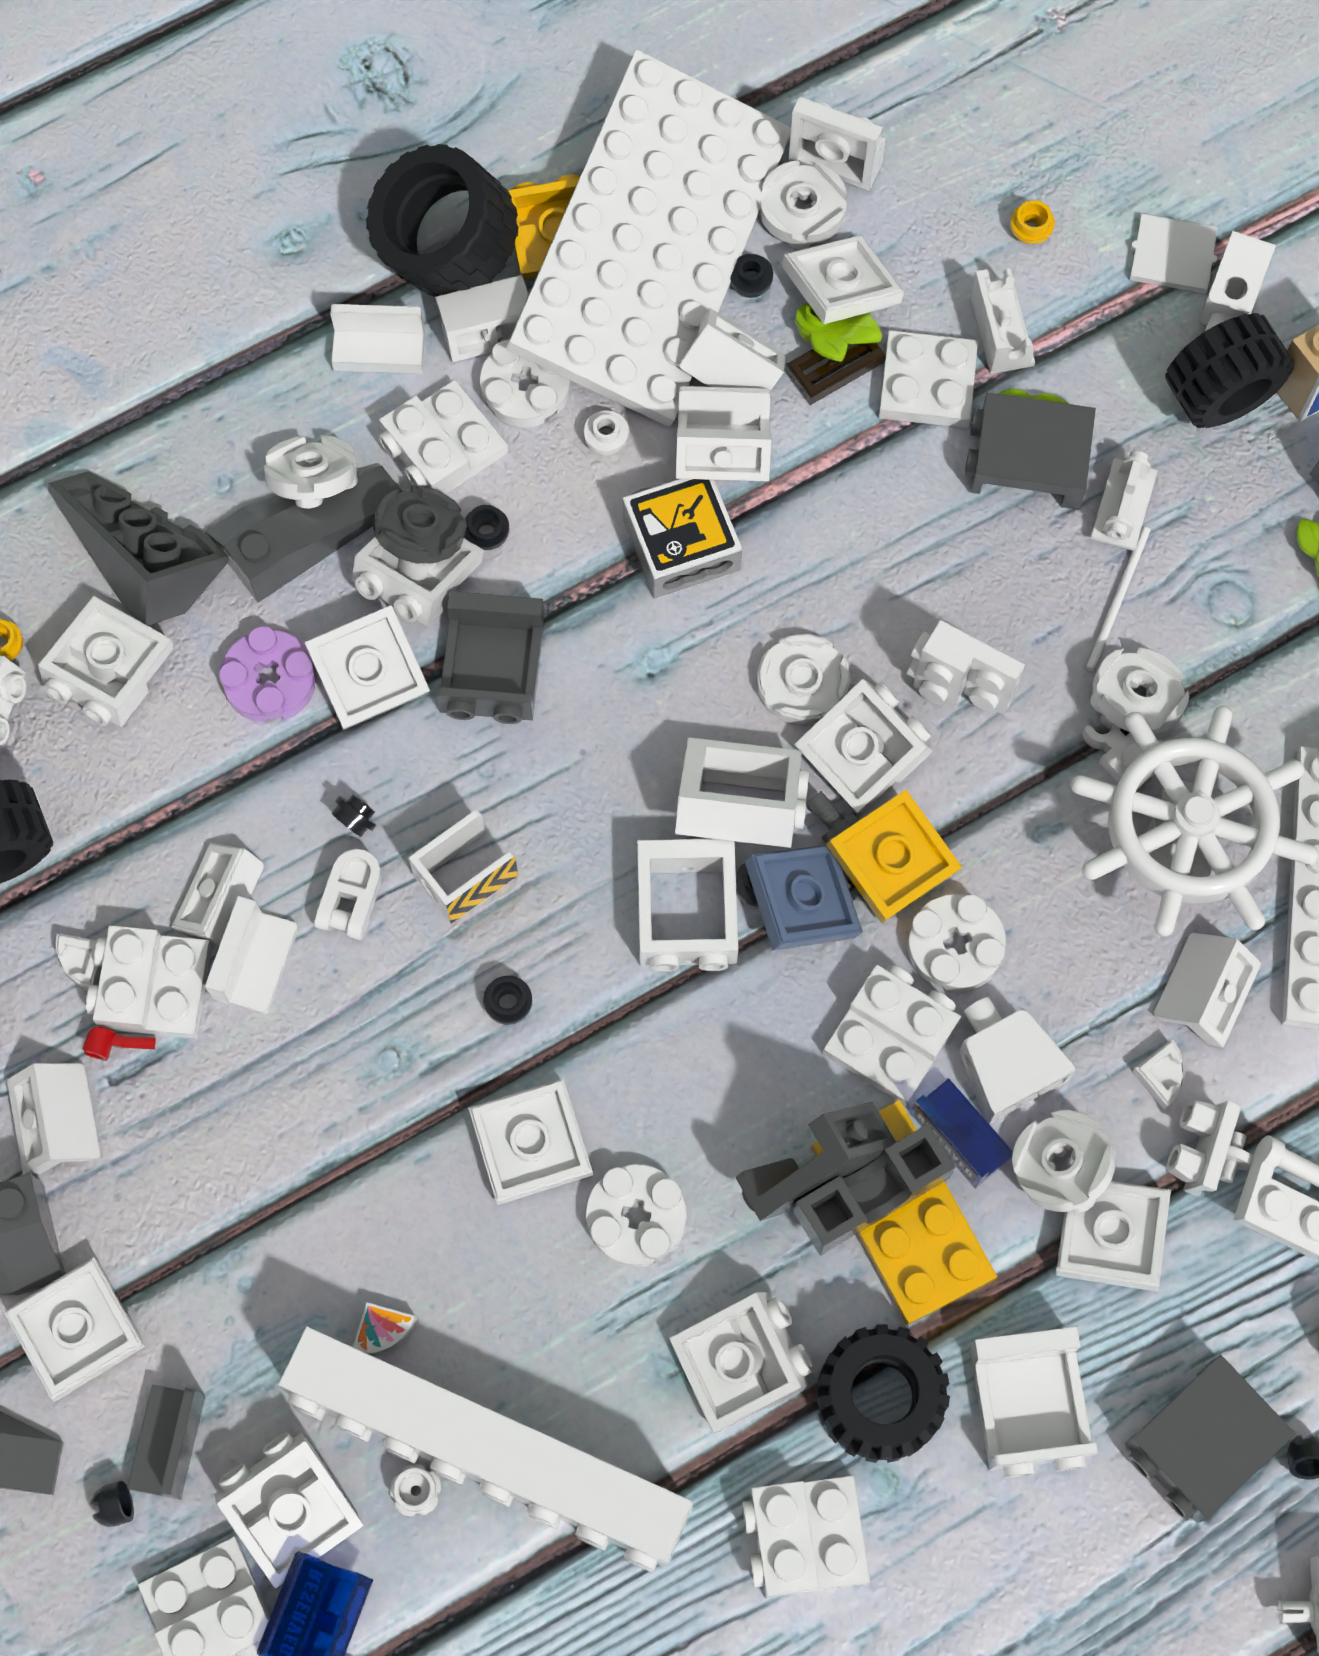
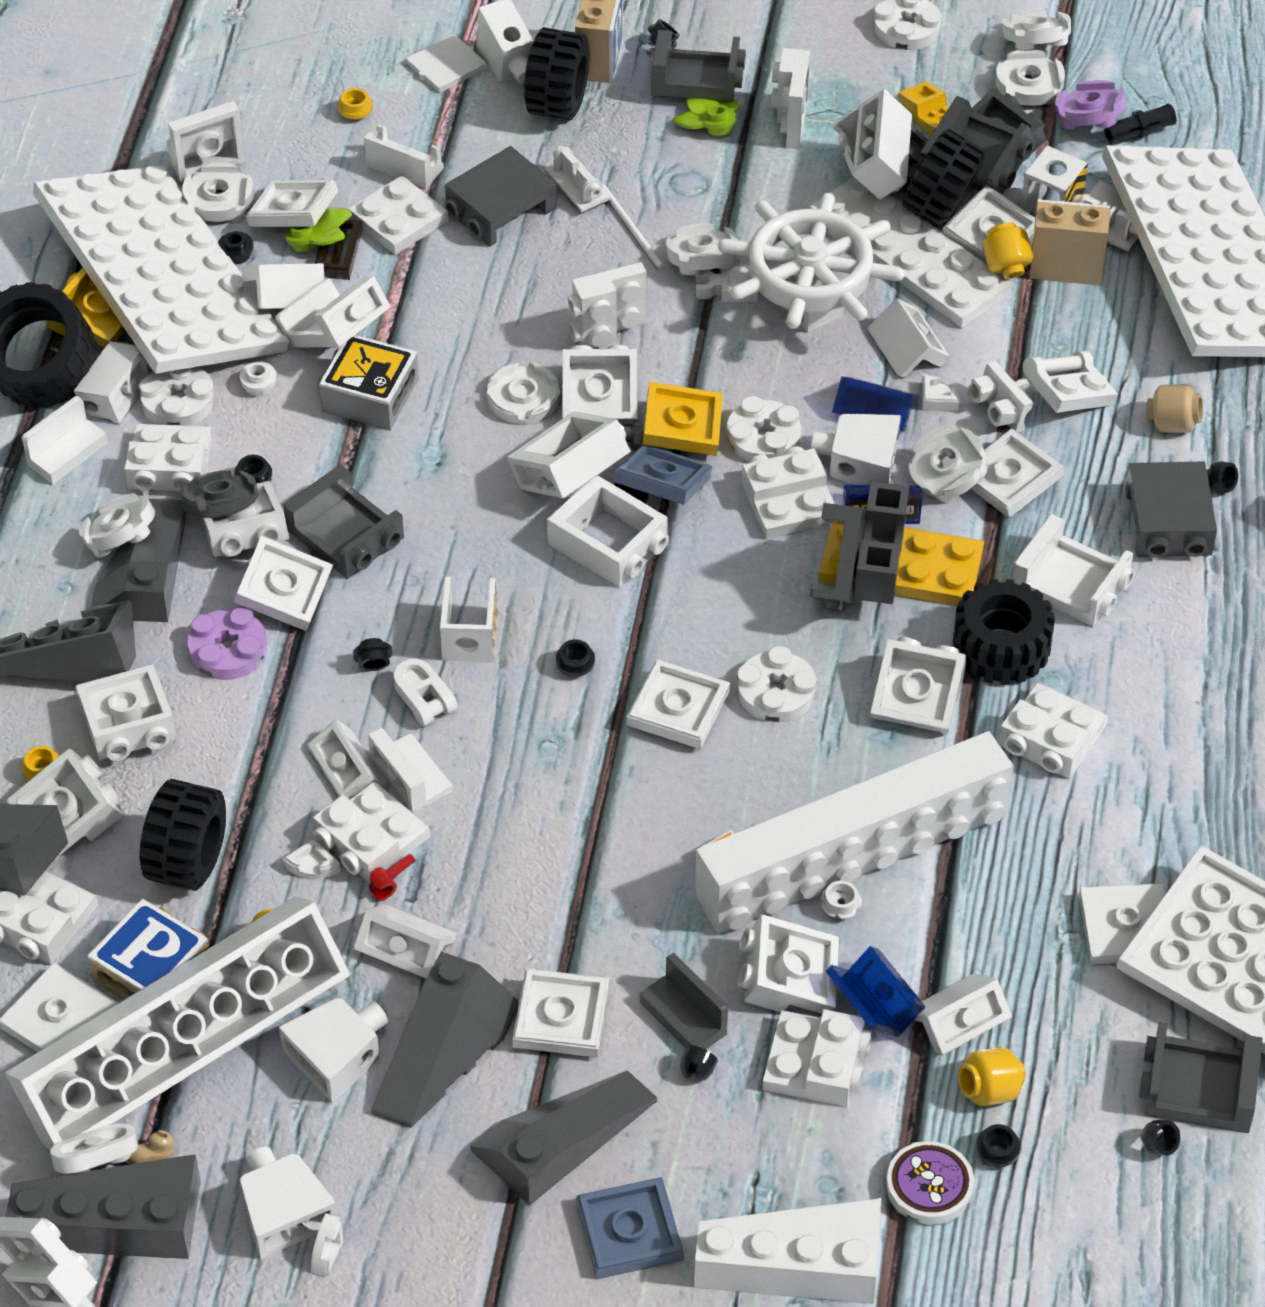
camera: 50 degrees left, 20 degrees down
(1092, 1020) = (866, 397): none -> clear blue panel

